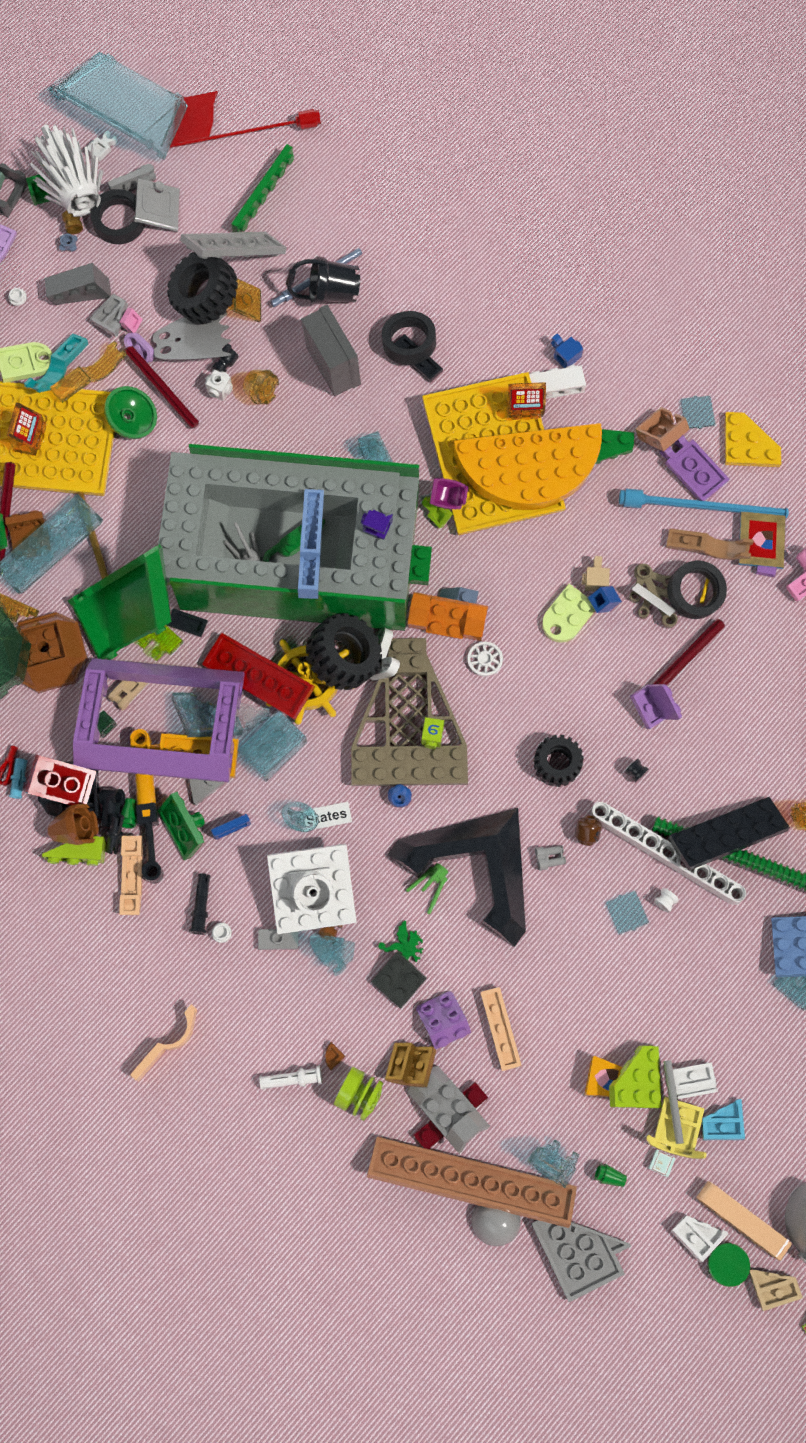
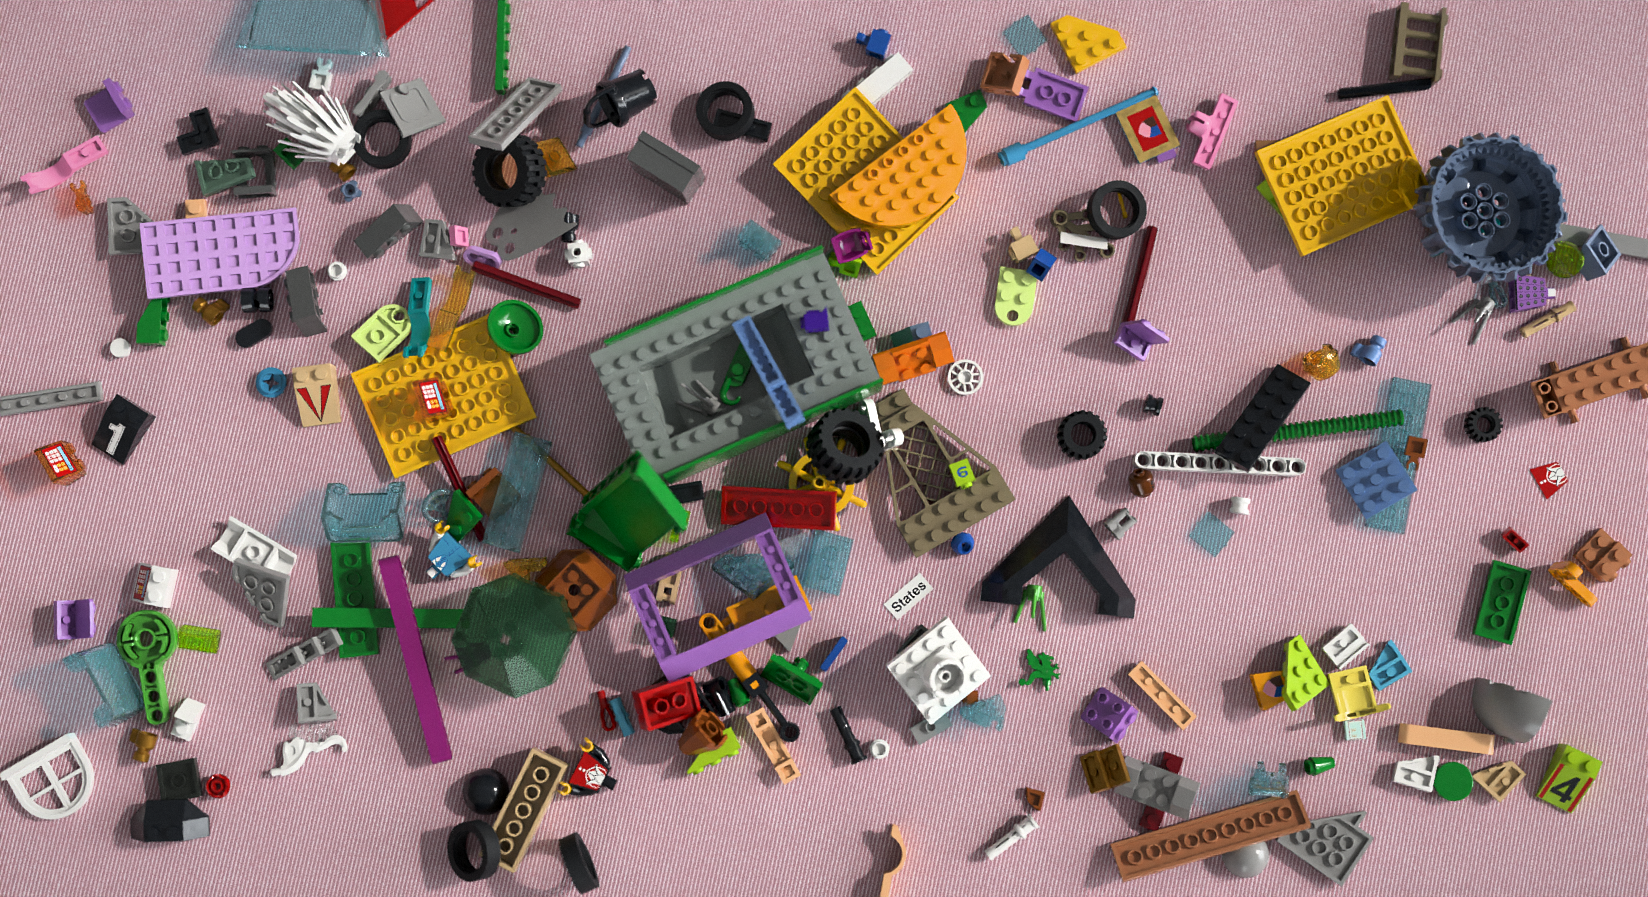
camera: 30 degrees left, 10 degrees up
(114, 833) = (738, 718): black pin -> none
(260, 386) = (617, 234): clear yellow cone -> none
(297, 818) = (887, 615): clear light blue piece -> none
(358, 1093) = (1077, 819): lime wheel -> none
(399, 979) = (1053, 702): pearl dark grey plate -> none
(525, 400) = (871, 119): slope -> none
(673, 1102) = (1338, 674): light grey bar -> none
(708, 545) = (1104, 160): medium nougat piece -> none

